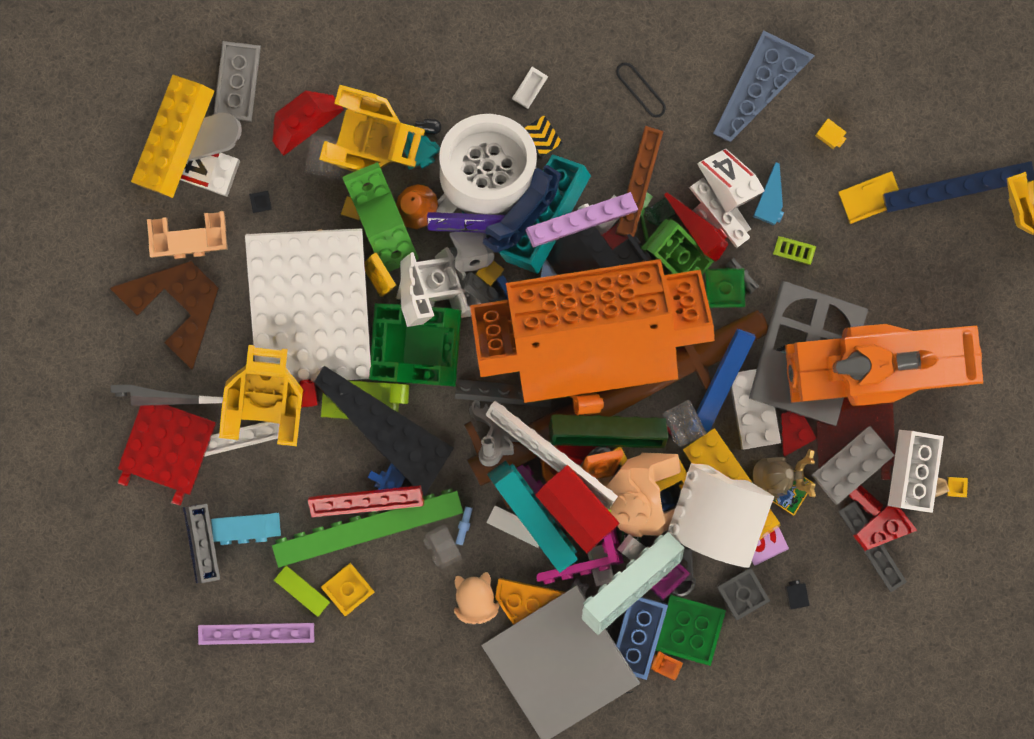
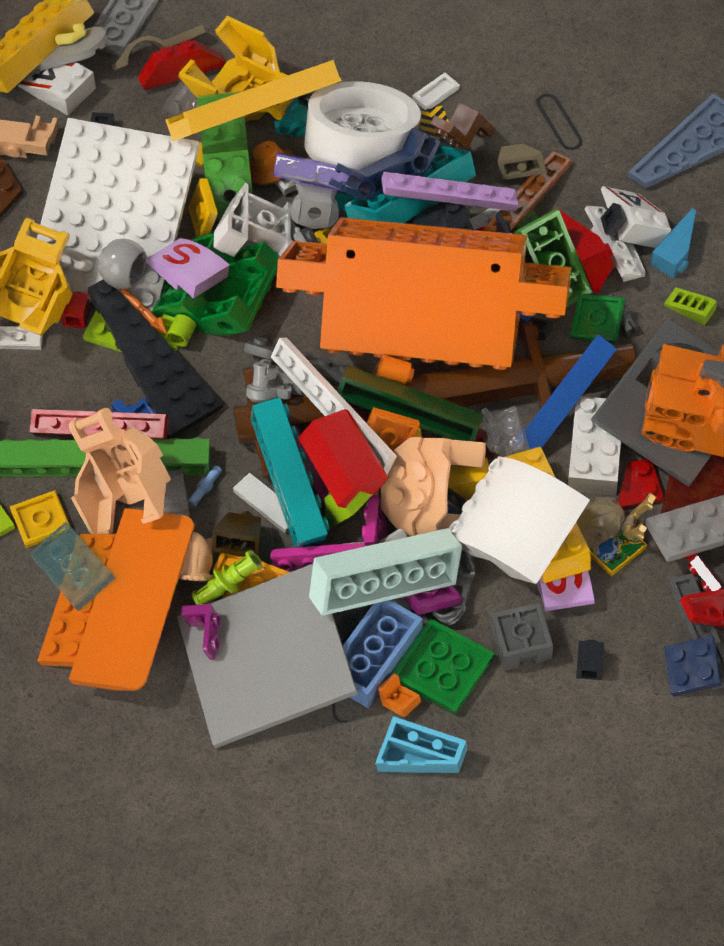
camera: 25 degrees right, 30 degrees down
(213, 125) = (70, 38): none -> light yellow arm
(285, 102) = (122, 60): none -> dark tan piece
(336, 357) = (122, 263): none -> light grey wheel
(378, 393) = (156, 323): none -> orange piece
(389, 343) = (189, 266): none -> lavender slope
(390, 631) = (72, 566): none -> clear light blue tile
(393, 544) = (119, 468): none -> light nougat piece
(397, 180) = (252, 100): none -> yellow tile
(435, 651) = (119, 629): none -> orange slope
(501, 649) = (204, 616): none -> magenta bracket
(507, 567) = (237, 534): none -> dark brown torso
(512, 611) = (227, 580): none -> lime piece
(571, 142) = (462, 127): none -> reddish brown bracket
(621, 151) = (520, 161): none -> dark tan slope
(695, 705) = (419, 750): none -> medium azure wedge
(717, 200) = (612, 219): none -> black plate
(873, 580) = (693, 666): none -> dark blue plate

